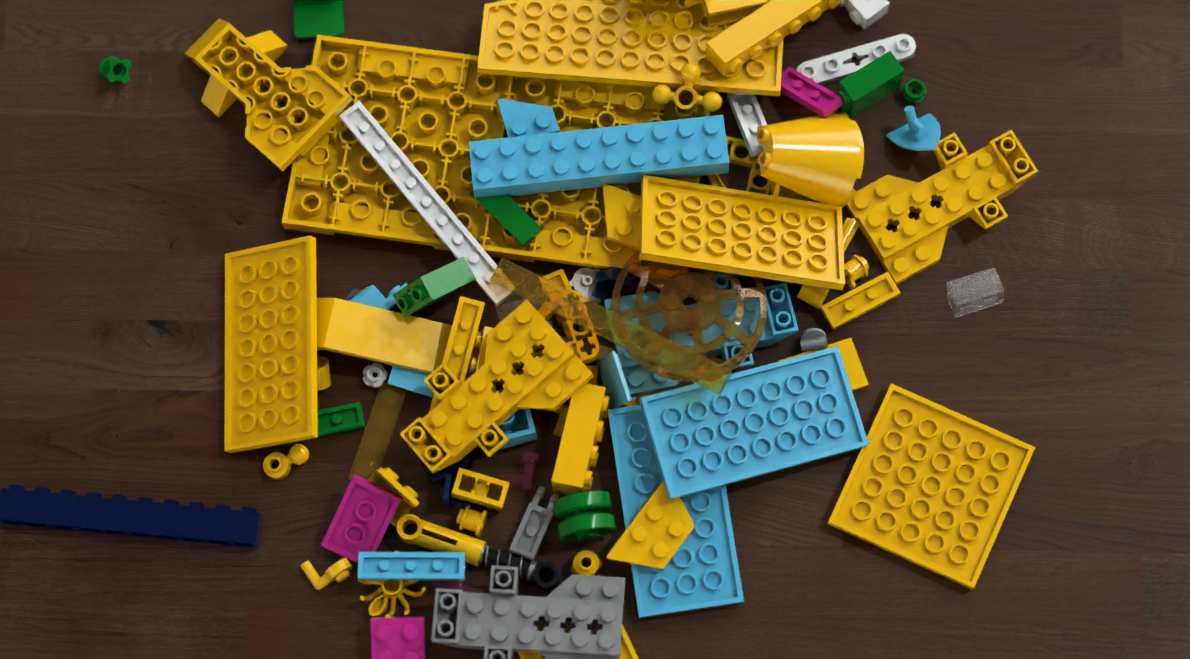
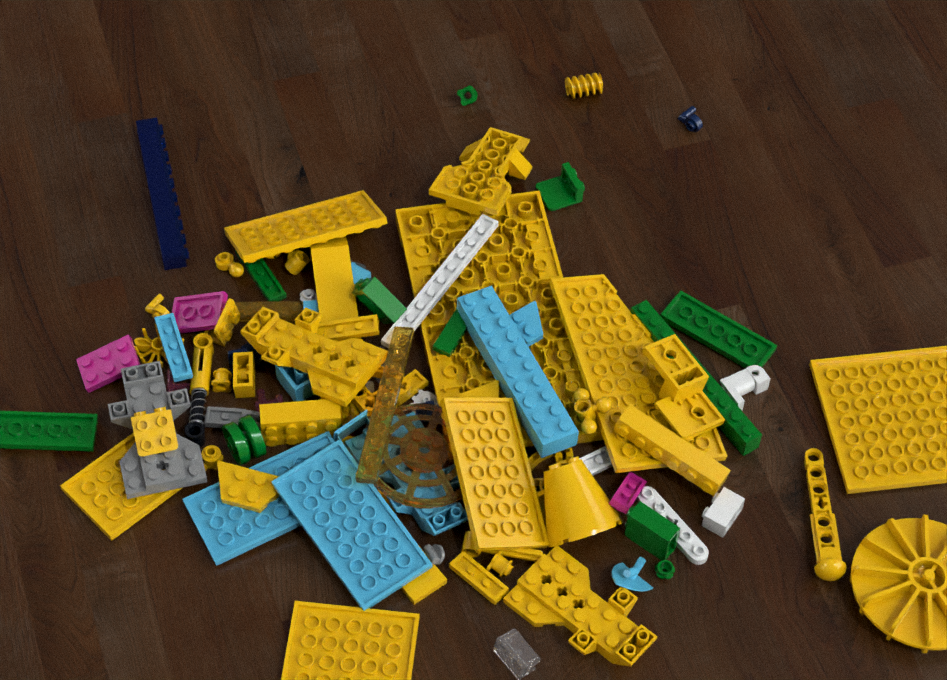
camera: 65 degrees right, 20 degrees down
(548, 621) = (154, 432): none -> yellow bracket

